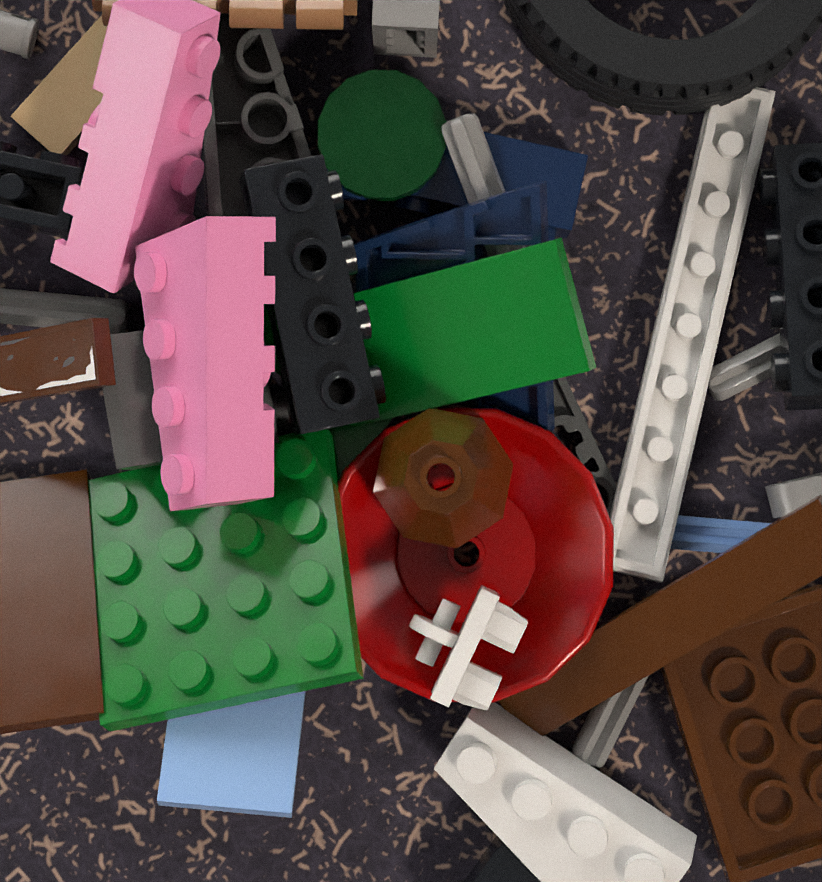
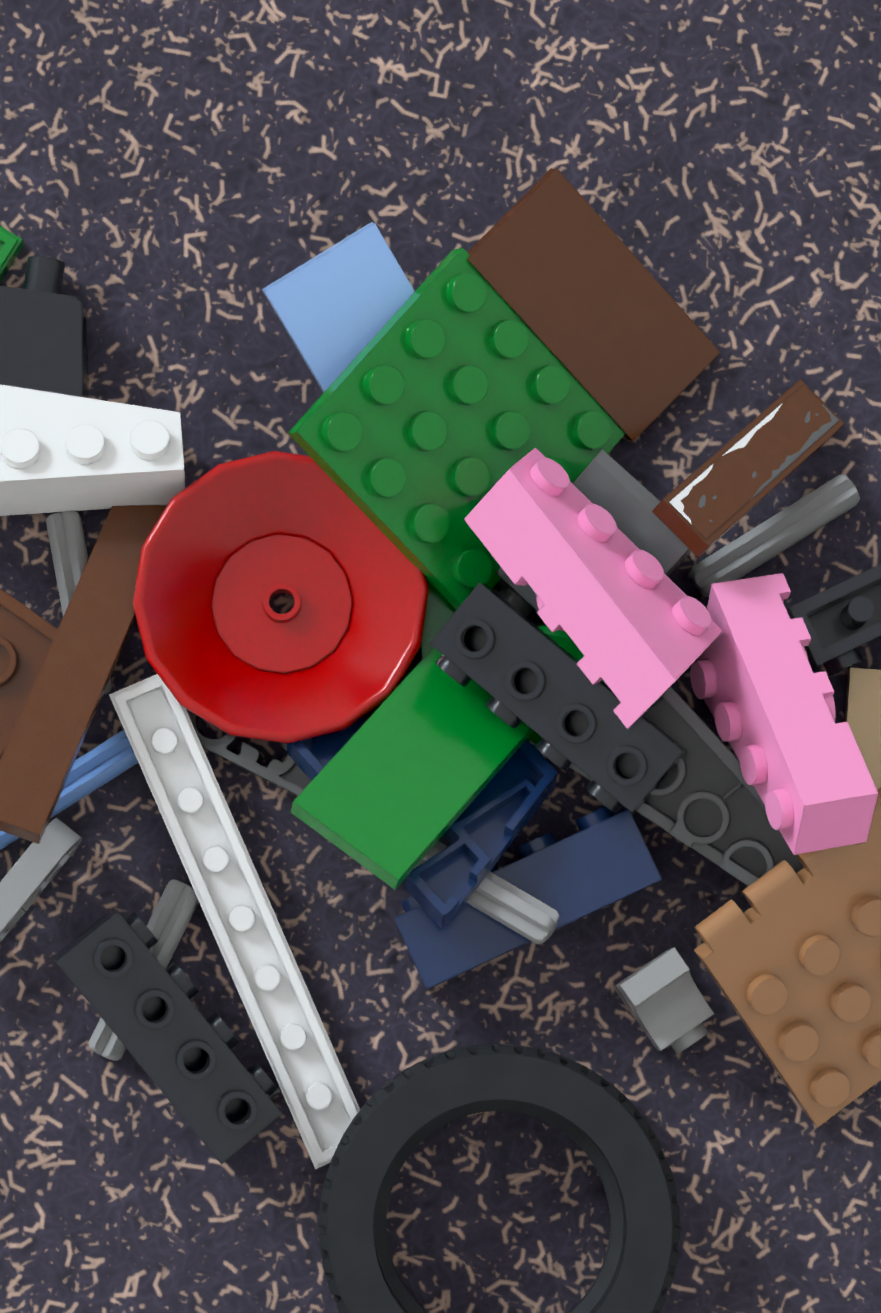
camera: 140 degrees right, 5 degrees down
(382, 134) = (602, 874): dark green tile -> none
(459, 676) = (211, 494): white hips -> none
(479, 484) = (344, 666): reddish brown cone -> none

